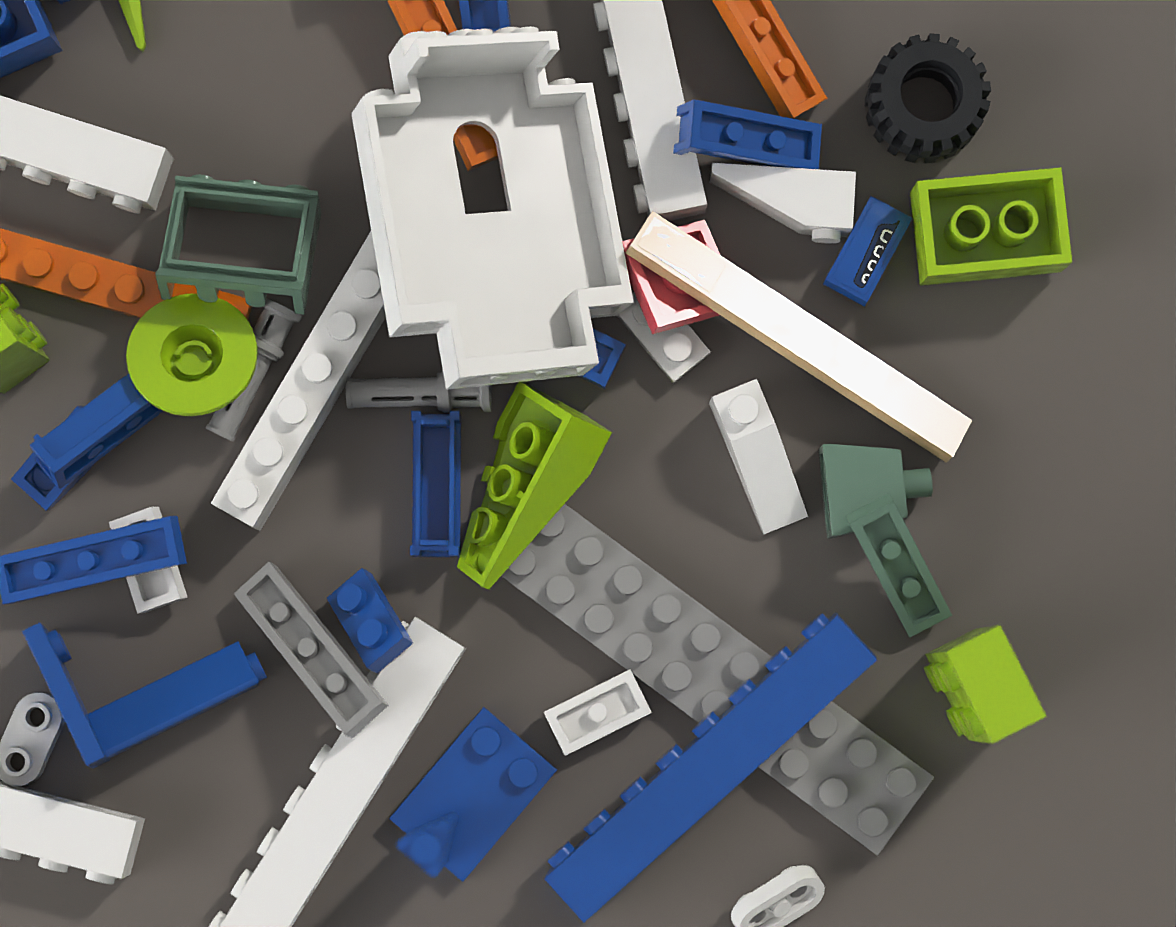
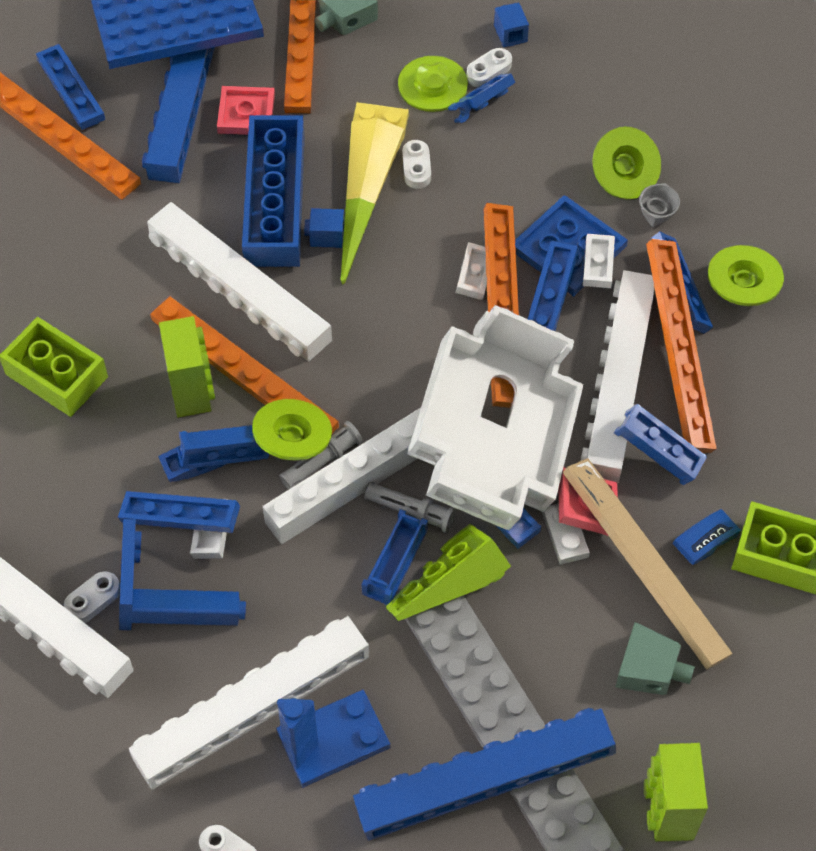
camera: 25 degrees right, 25 degrees down
(246, 197) = (357, 368): sand green window -> none
(311, 650) = (278, 610): light grey plate -> none
(369, 620) = (320, 609): blue plate -> none
(597, 712) = (430, 721): white plate -> none
(758, 455) = (593, 618): white slope -> none
(800, 198) = (676, 491): white slope -> none
(899, 565) = (651, 706): sand green plate -> none
(950, 68) = (781, 449): black tyre -> none

